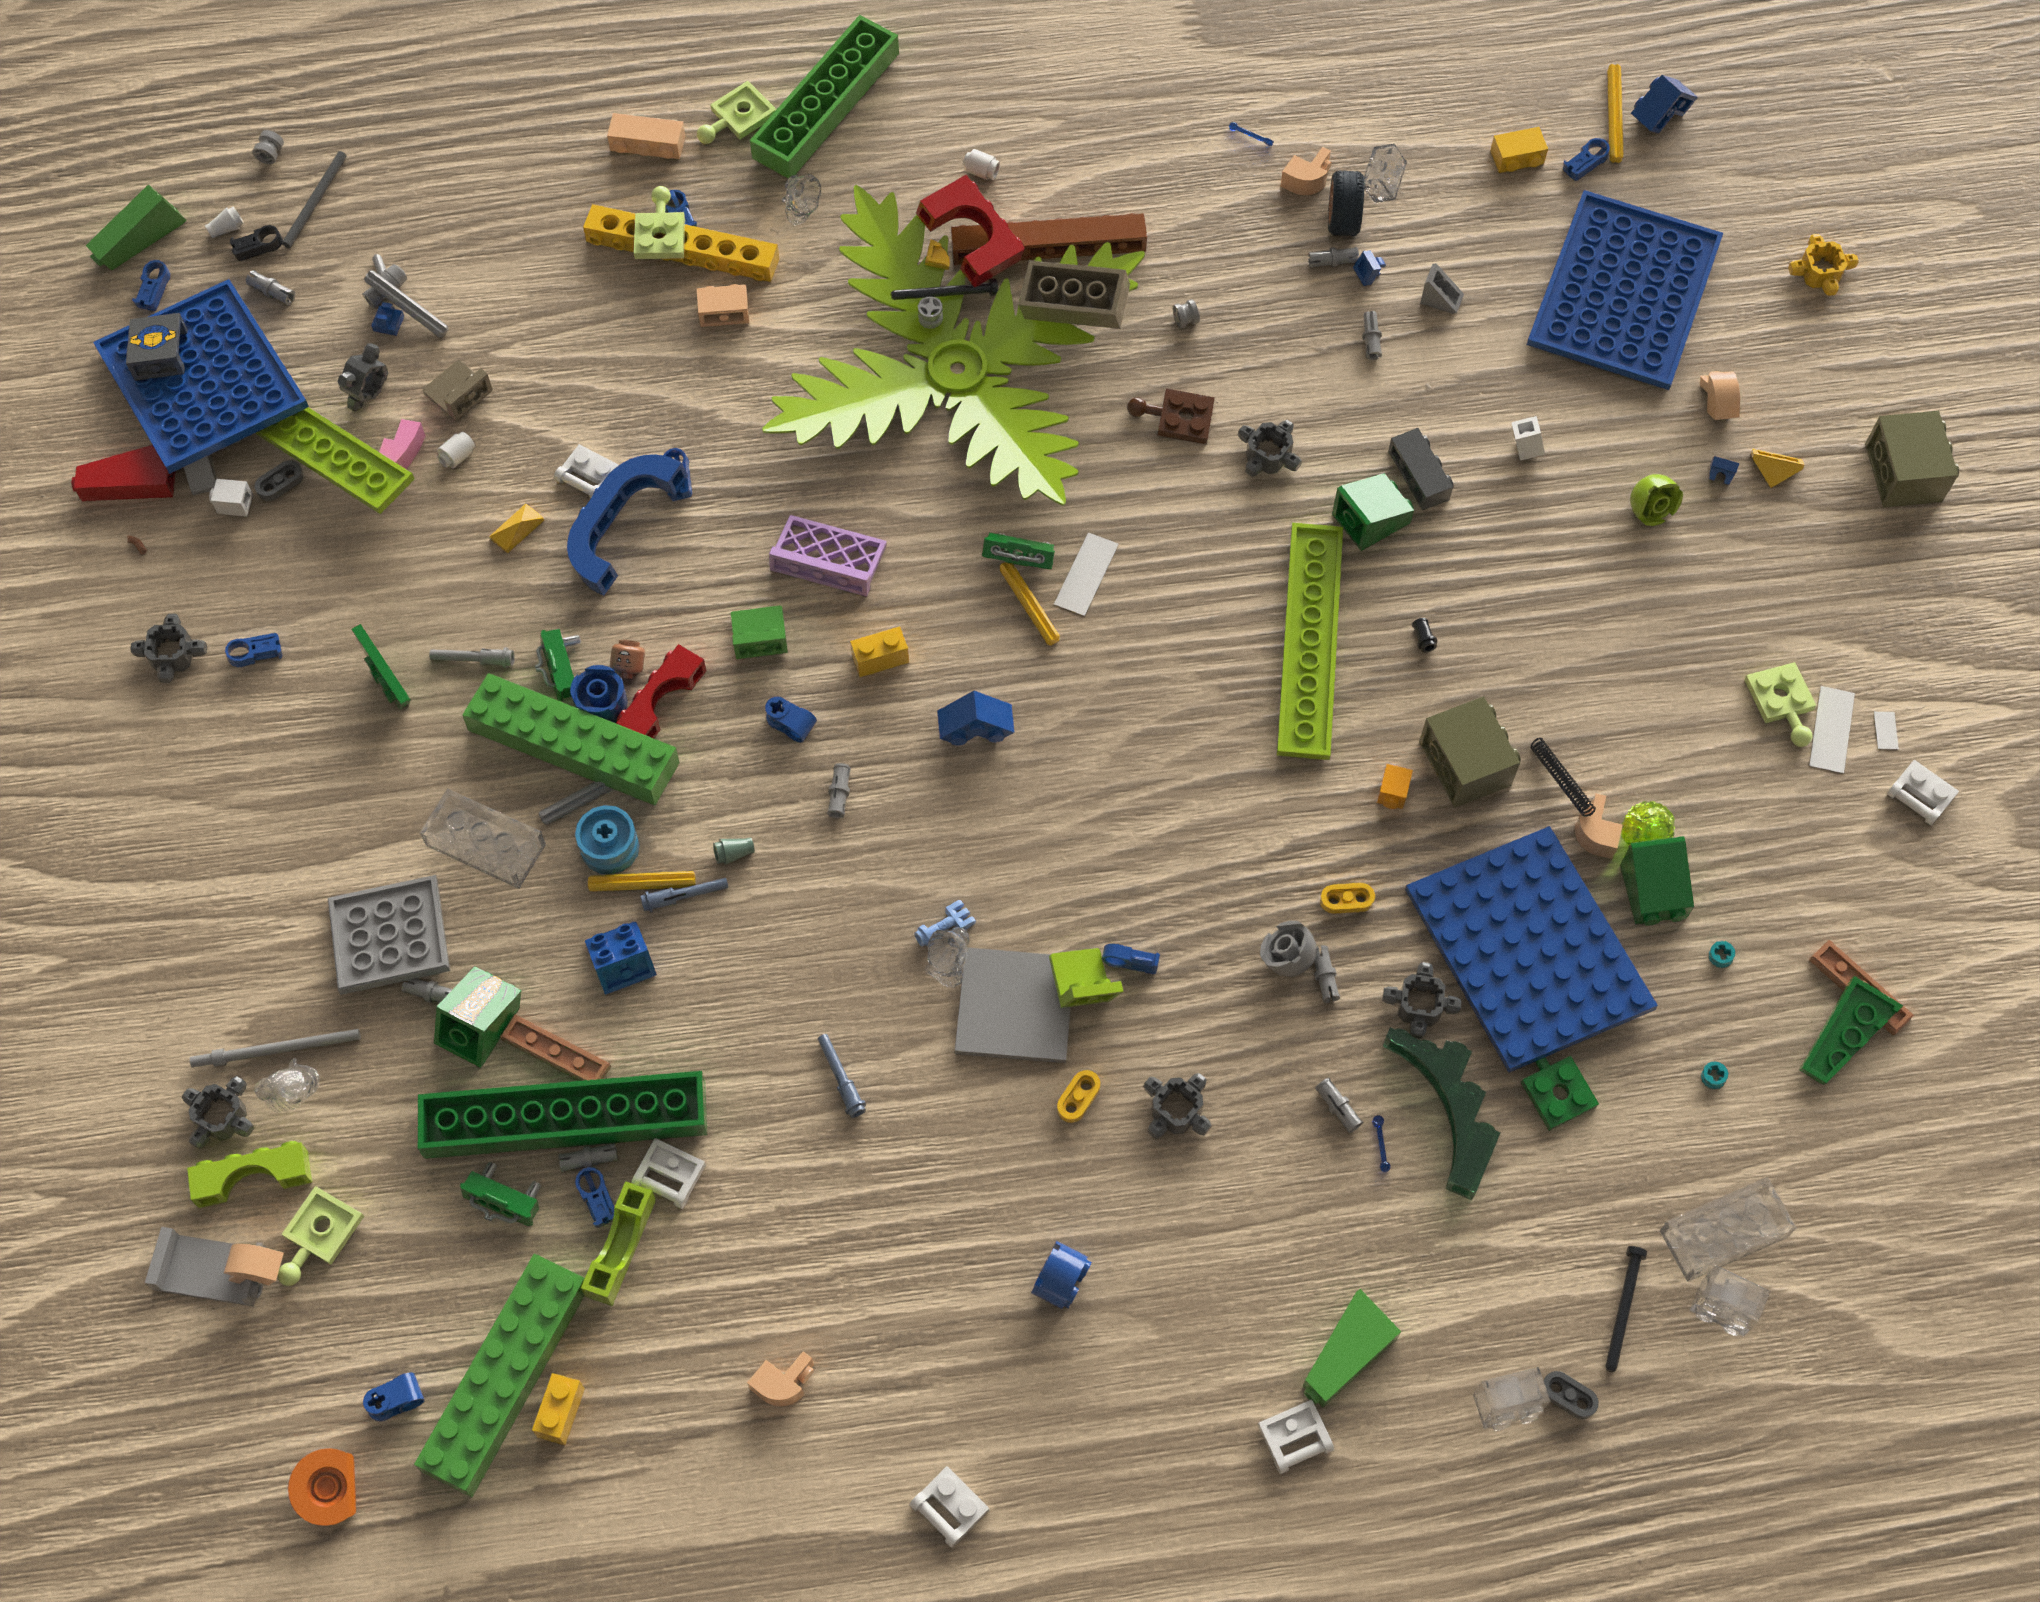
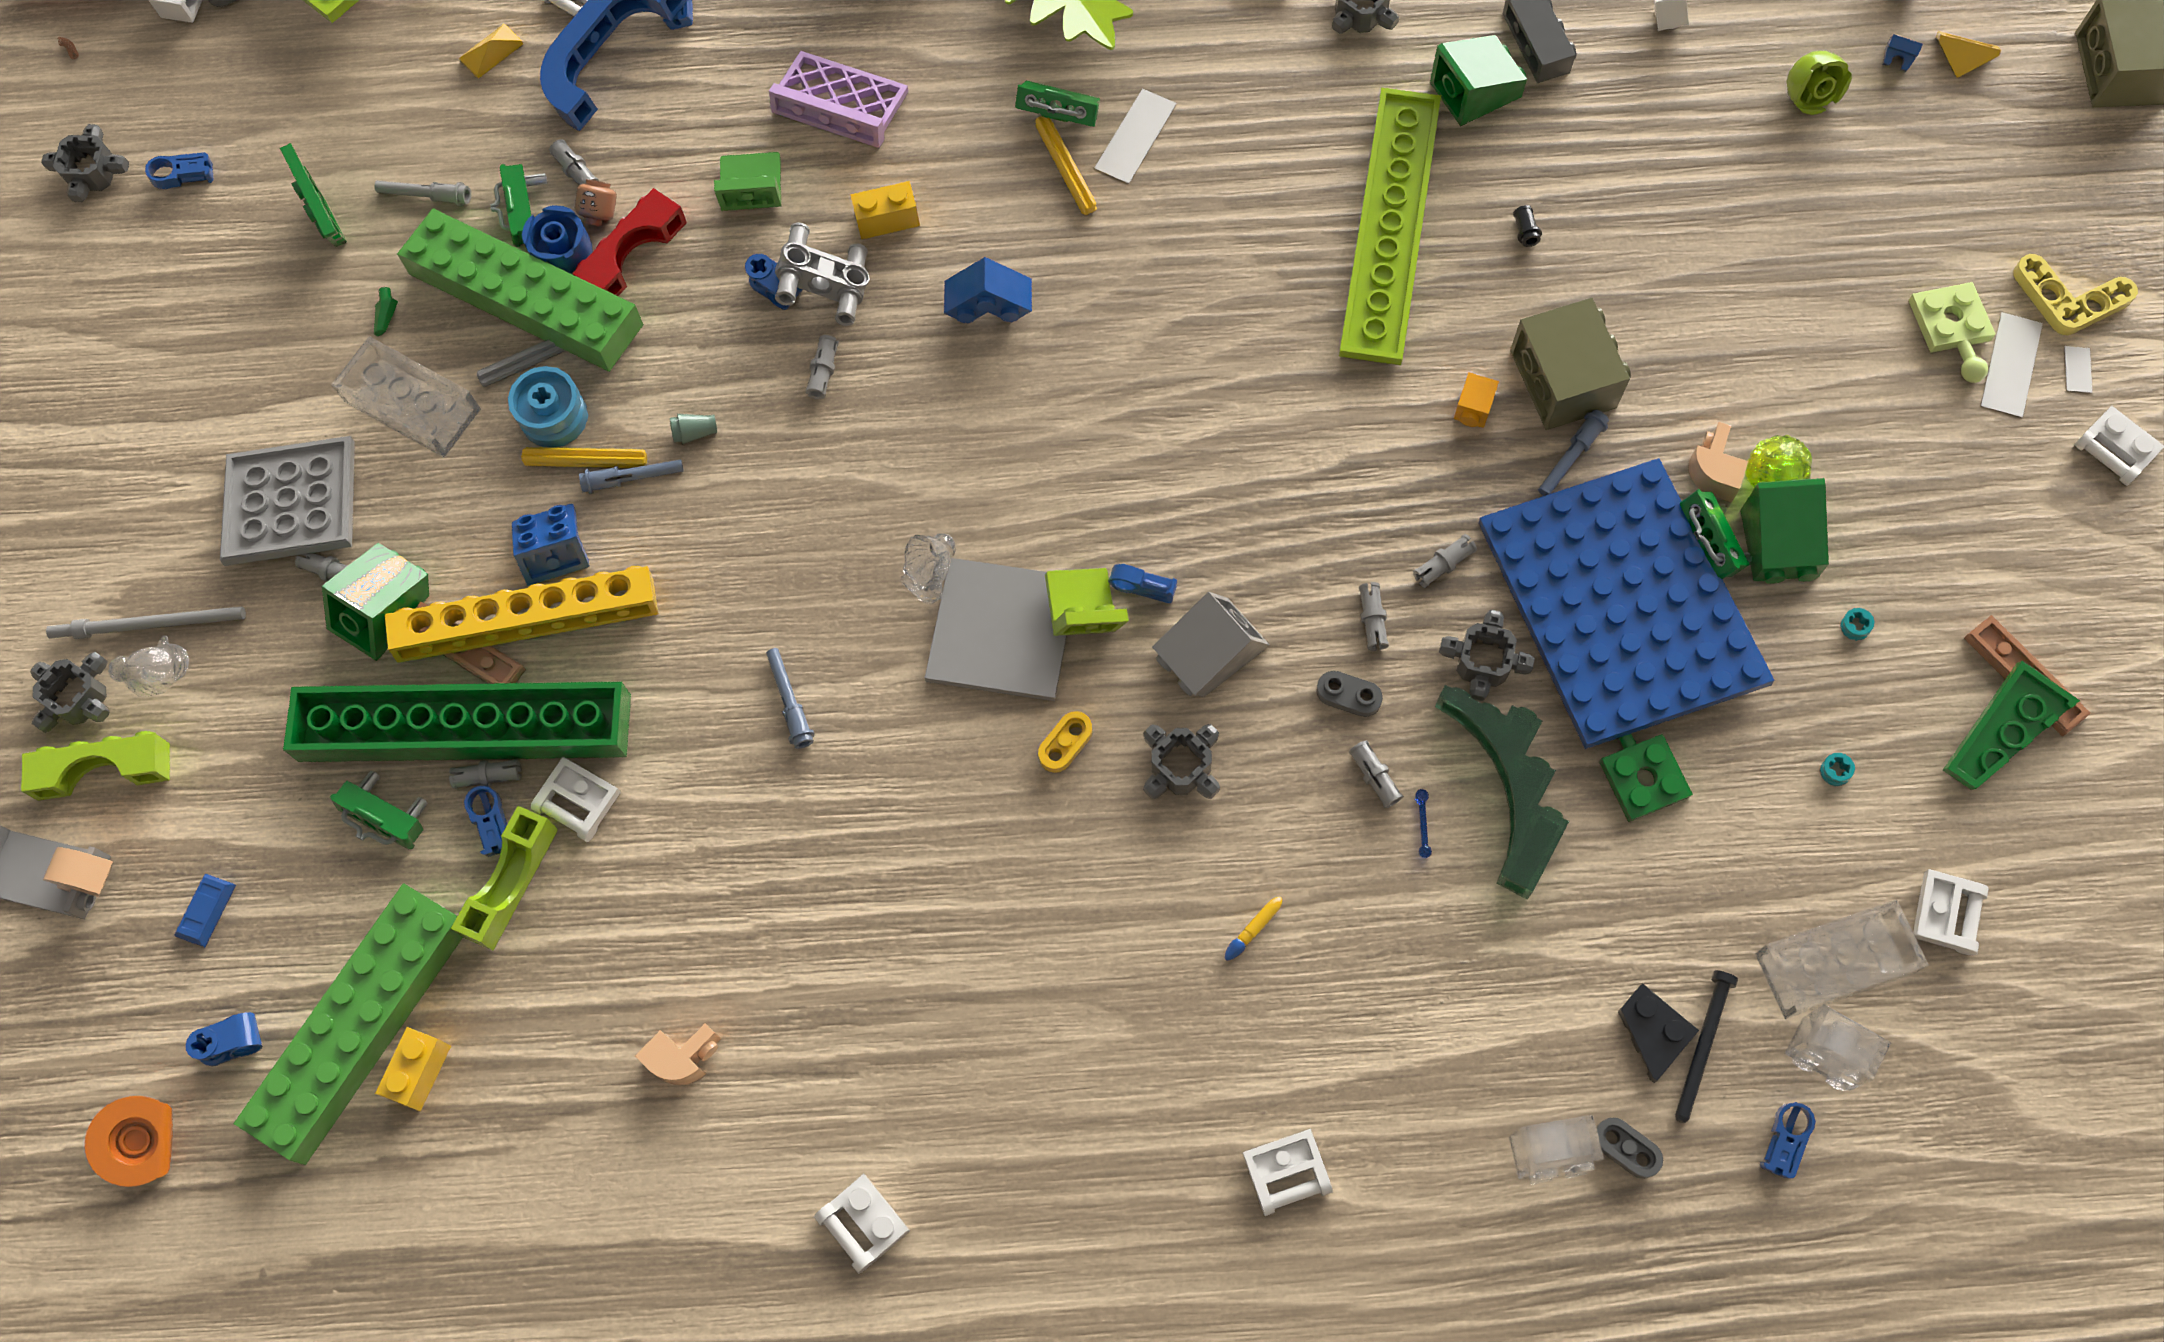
camera: 10 degrees right, 5 degrees up
(324, 1244) = (149, 838): yellowish green plate -> none
(358, 1290) = (205, 910): none -> blue tile
(450, 764) = (384, 310): none -> green bar
(597, 1030) = (508, 626): none -> yellow brick
(602, 626) = (573, 165): none -> light grey pin
(832, 711) = (821, 274): none -> light grey piece
(954, 918) = (940, 523): light blue hinge -> none
(1060, 1274) = (1020, 954): blue brick -> none
(1191, 1007) = (1208, 645): none -> light grey slope
(1249, 1240) = (1238, 945): none -> yellow piece
(1289, 949) = (1332, 584): light grey cylinder -> none
(1310, 1042) = (1348, 696): none -> dark grey plate
(1346, 898) = (1407, 525): yellow plate -> none
(1354, 1344) = (1367, 1066): bright green slope -> none
(1380, 923) = (1444, 560): none -> light grey pin
(1489, 808) = (1594, 424): none -> sand blue pin
(1569, 782) = (1683, 403): black piece -> none
(1584, 1298) = (1655, 1030): none -> black wing
(1600, 887) = (1714, 534): none -> green piece
(1696, 1385) = (1785, 1148): none -> blue piece
(1804, 1182) = (1939, 911): none -> white plate
(1872, 677) = (2066, 304): none -> light yellow beam

